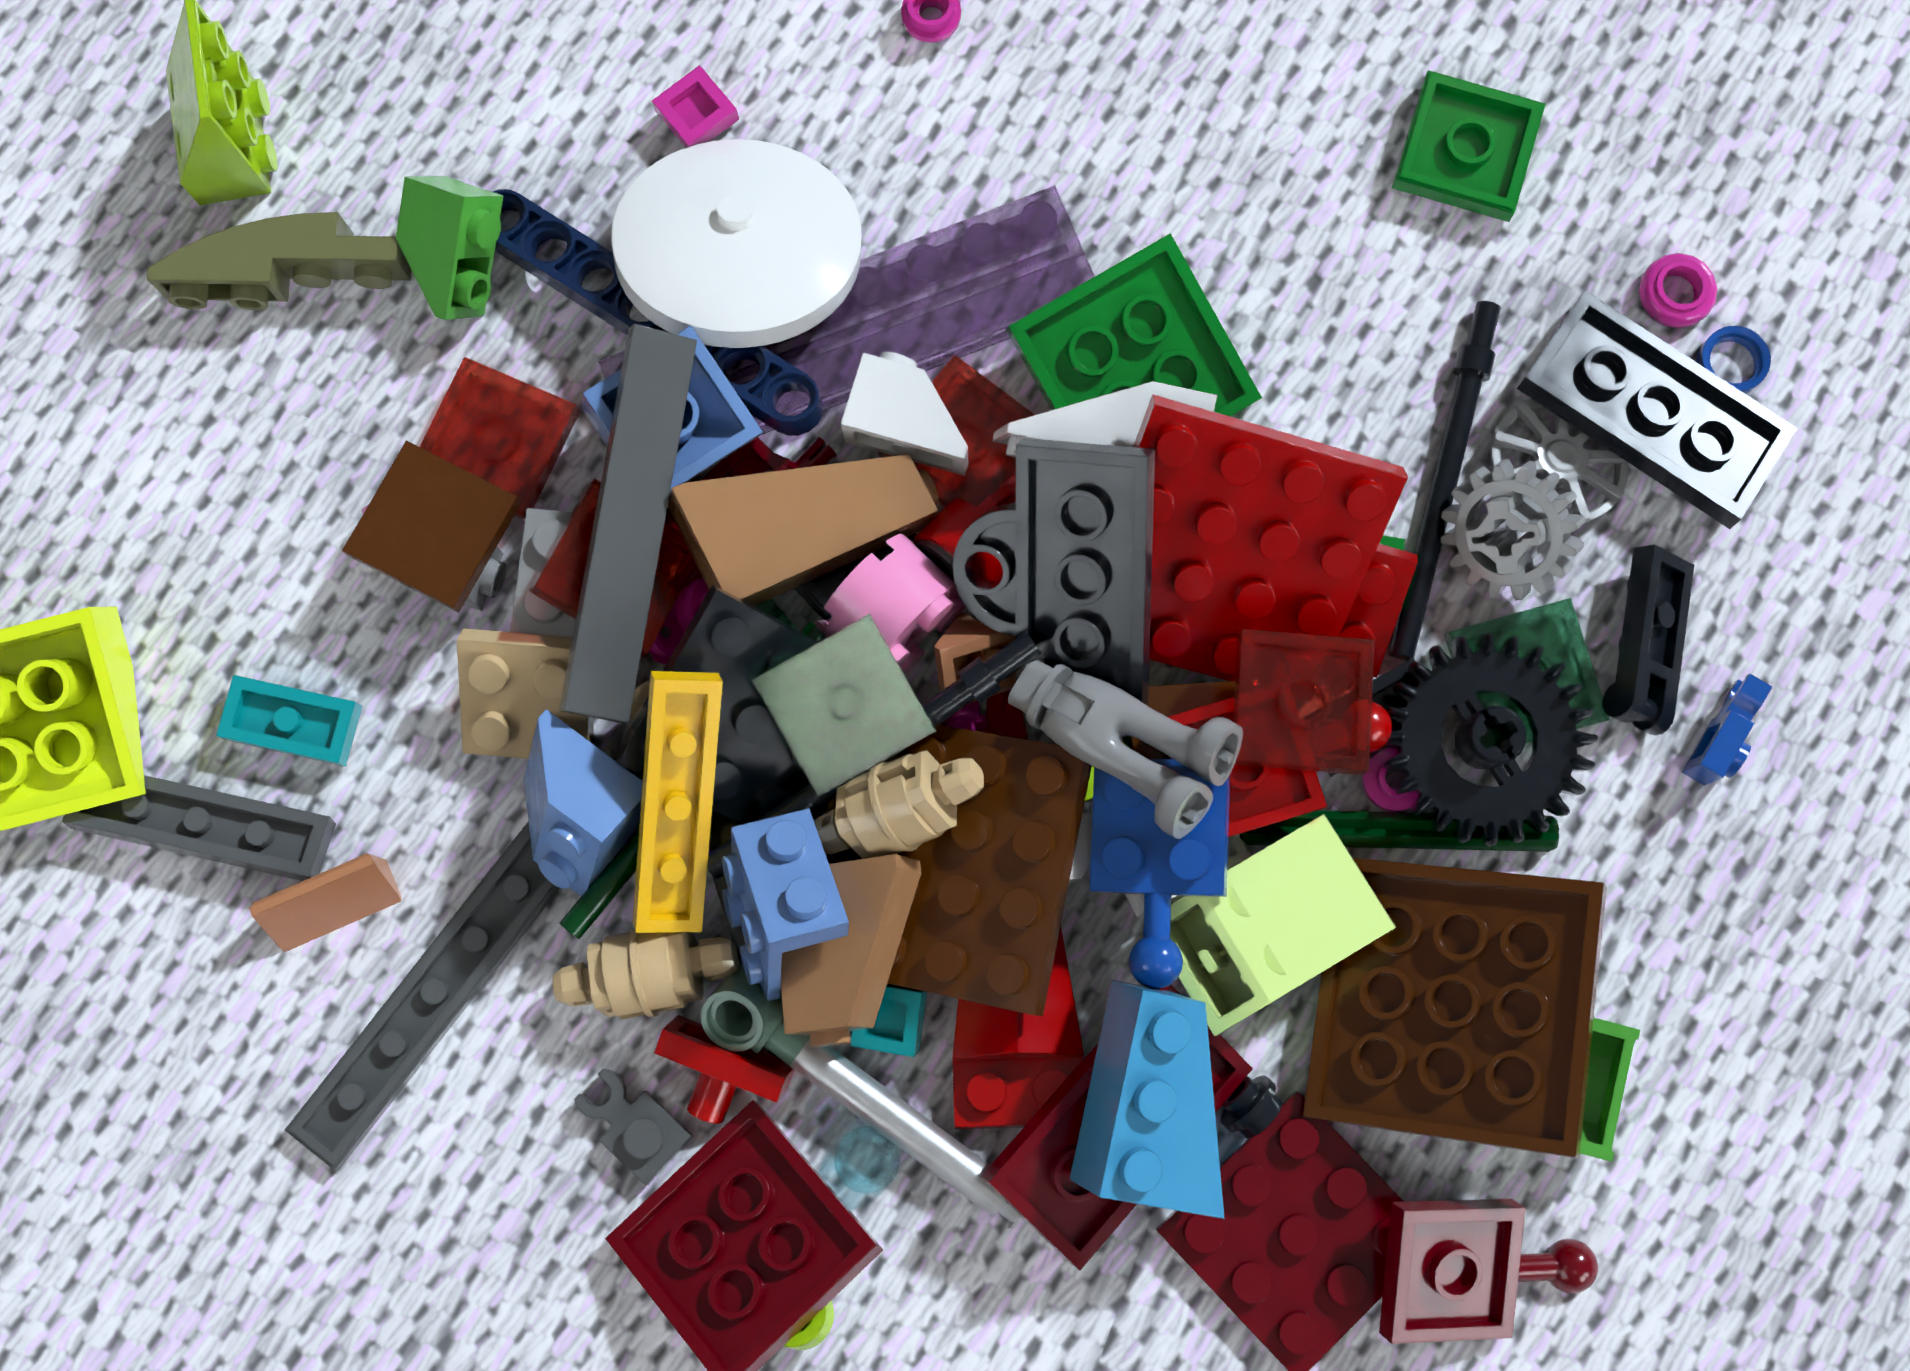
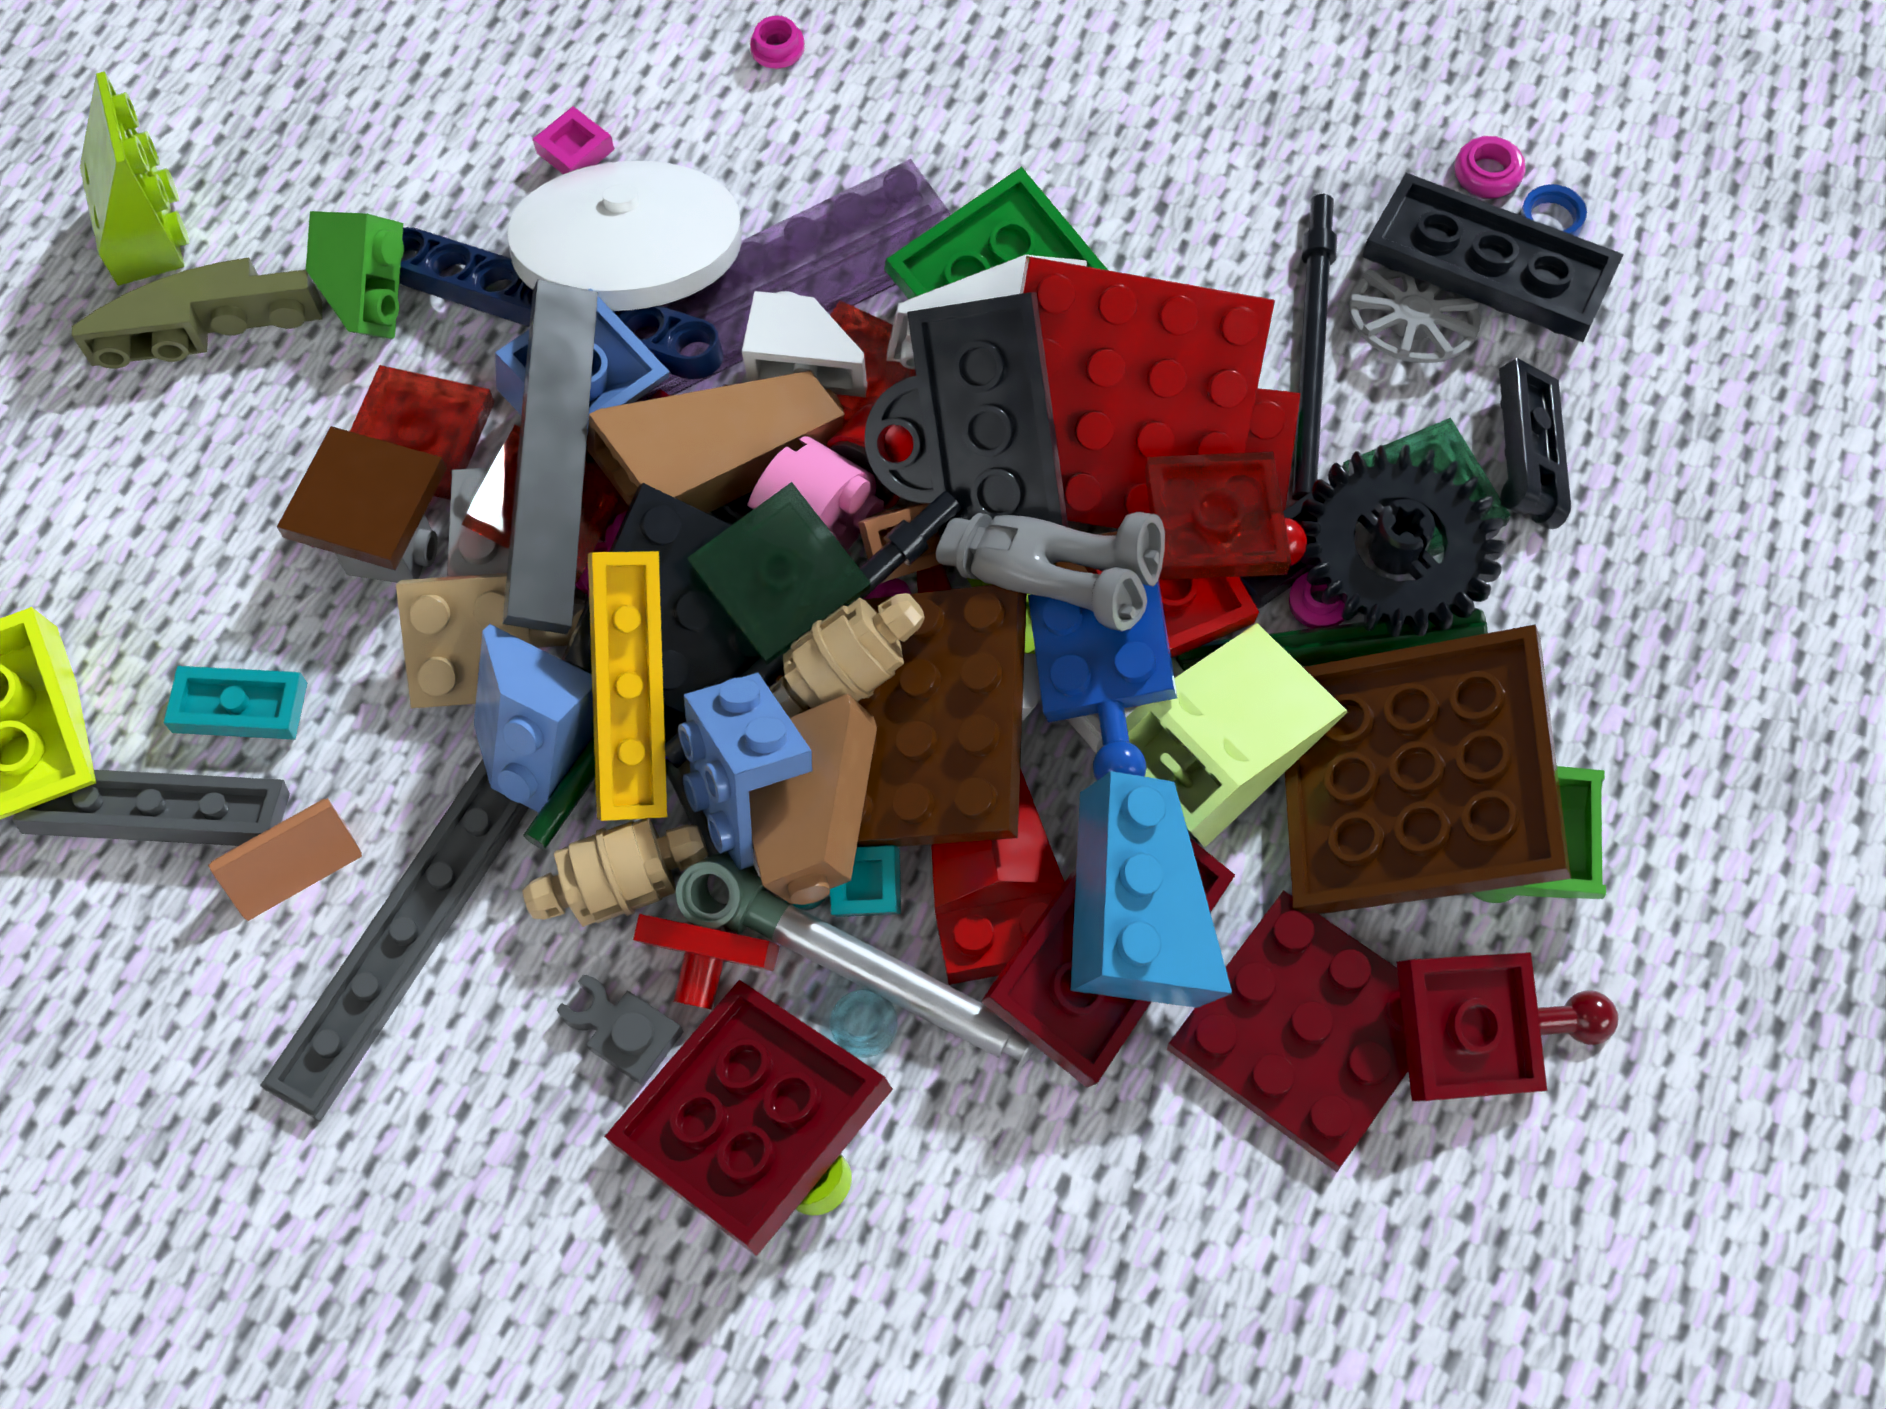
camera: 10 degrees left, 15 degrees down
(1251, 1107) = (1239, 909): black plate -> none
(1468, 146) = (1277, 80): green plate -> none
(1498, 552) = (1373, 342): light grey gear -> none
(1722, 746) = (1622, 522): blue plate -> none

